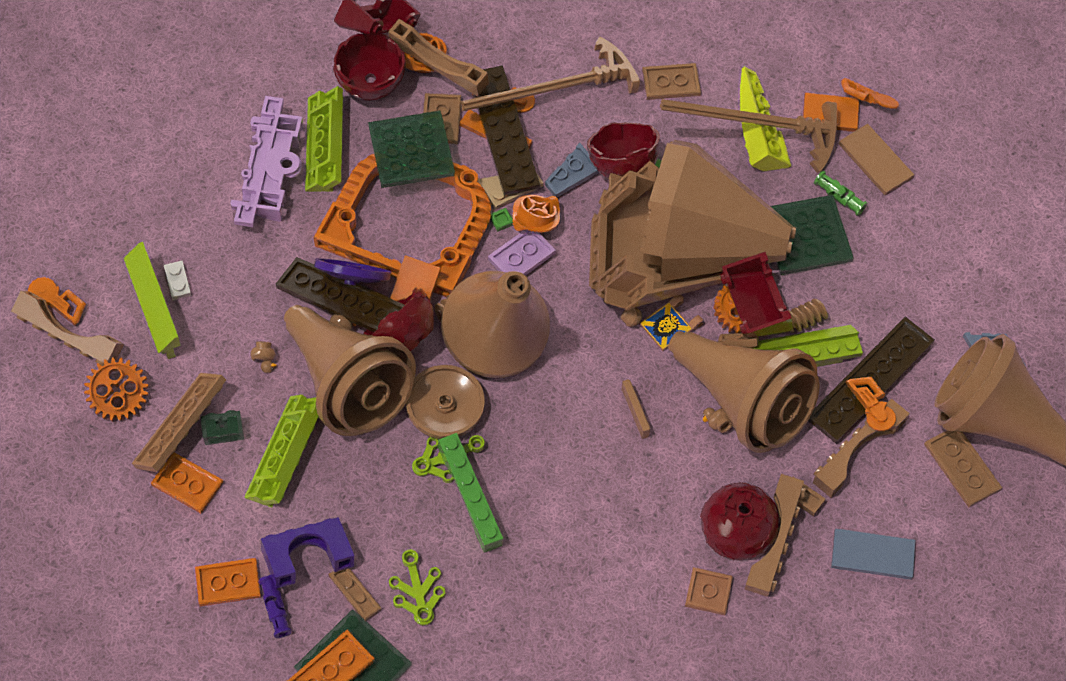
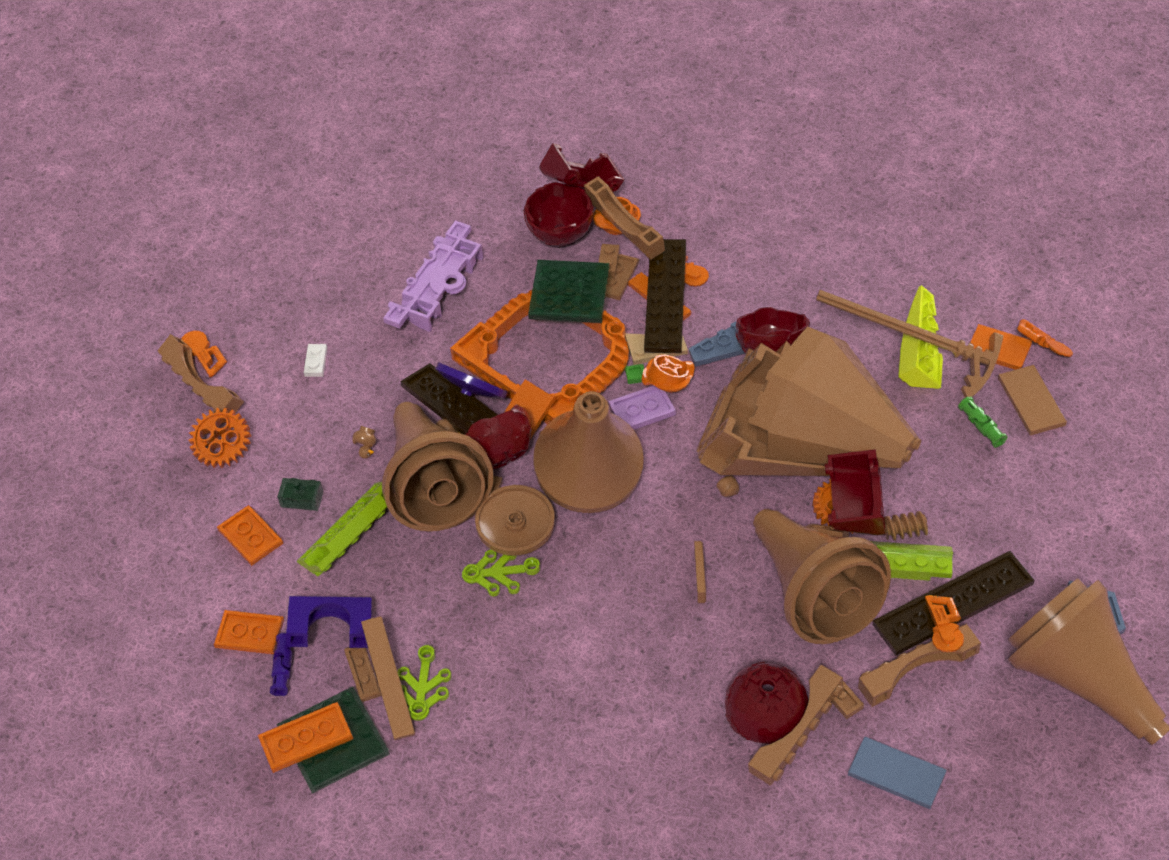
camera: 25 degrees right, 10 degrees down
(152, 300) = (283, 371): lime slope -> none
(178, 422) = (258, 482): medium nougat plate -> none
(324, 140) = (495, 271): lime slope -> none
(385, 592) = (387, 678): none -> medium nougat tile
(432, 100) = (609, 254): none -> medium nougat plate
(471, 492) = (505, 608): bright green arch -> none
(604, 73) = (792, 247): medium nougat piece -> none
(667, 321) = (762, 498): flag -> none
(671, 81) = (850, 286): medium nougat tile -> none
(708, 591) = (710, 763): nougat tile -> none
(717, 419) = (776, 601): medium nougat animal -> none
(818, 236) = (943, 456): clear green plate -> none
(963, 466) = (1025, 711): medium nougat tile -> none

